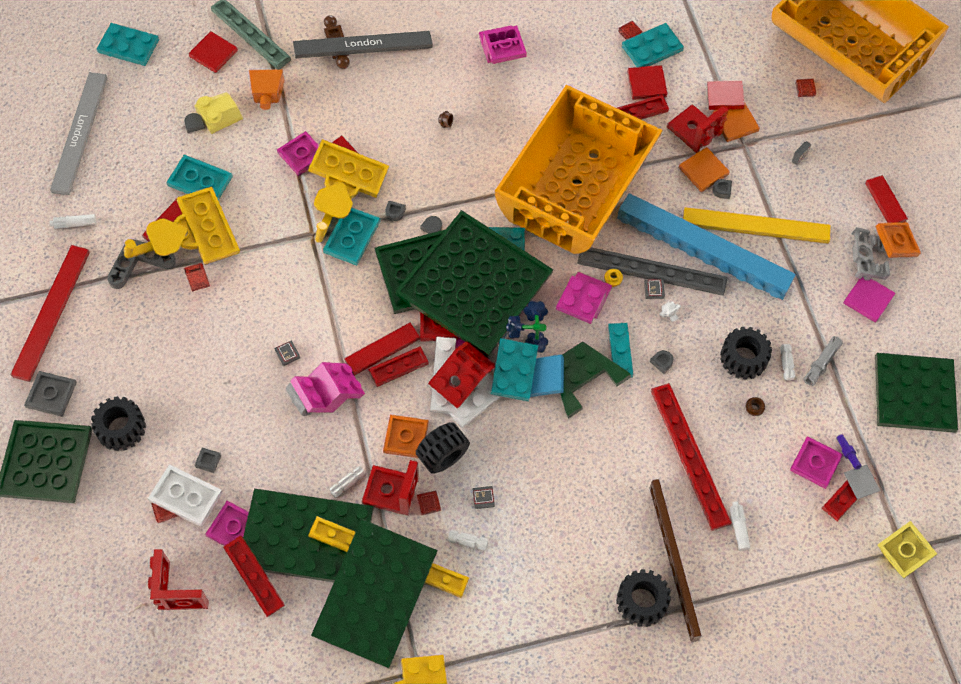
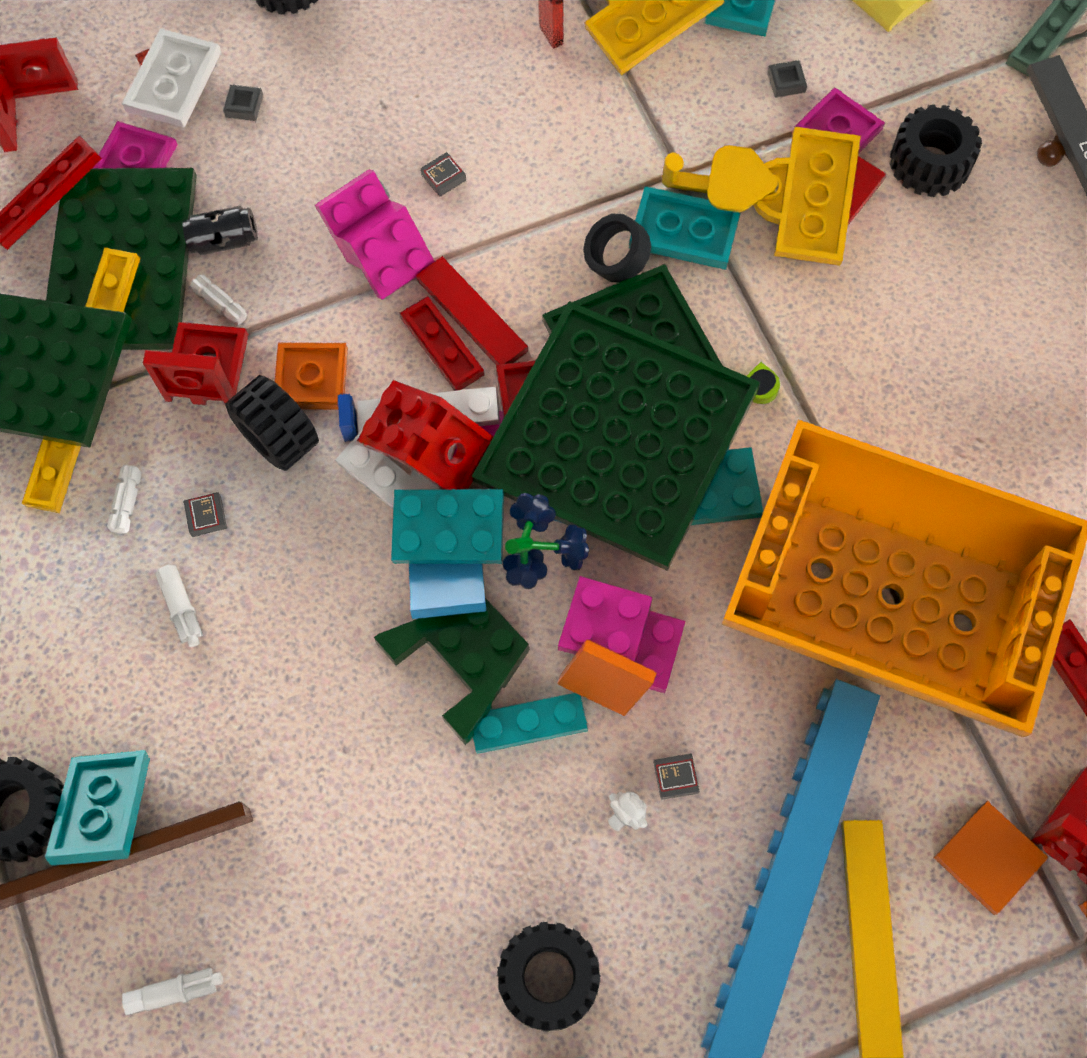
camera: 85 degrees right, 5 degrees up
(263, 171) = (787, 78): none -> dark grey tile
(266, 86) = (958, 46): orange torso -> none
(302, 474) = (234, 222): none -> black piece
(329, 99) = (941, 130): none -> black tyre
(362, 281) = (598, 238): none -> black tyre
(394, 210) = (753, 289): dark grey tile -> none
(428, 502) = (190, 429): clear red tile -> none
(431, 224) = (736, 353): dark grey tile -> none
(439, 416) = (347, 417): none -> blue tile
(446, 119) = (973, 342): reddish brown plate -> none
(449, 215) = (768, 383): none -> tile
(537, 512) = (179, 605): none -> white piece
(608, 304) = (606, 677): none -> orange tile
(613, 281) = (682, 702): yellow plate -> none
(647, 550) = (98, 808): none -> teal plate
(654, 270) = (719, 778): dark grey tile -> none
(662, 360) = (517, 808): dark grey tile -> none
(691, 457) = (314, 882): red tile -> none
(722, 188) = (952, 903): dark grey tile -> none
(755, 401) = (423, 1008): reddish brown plate -> none

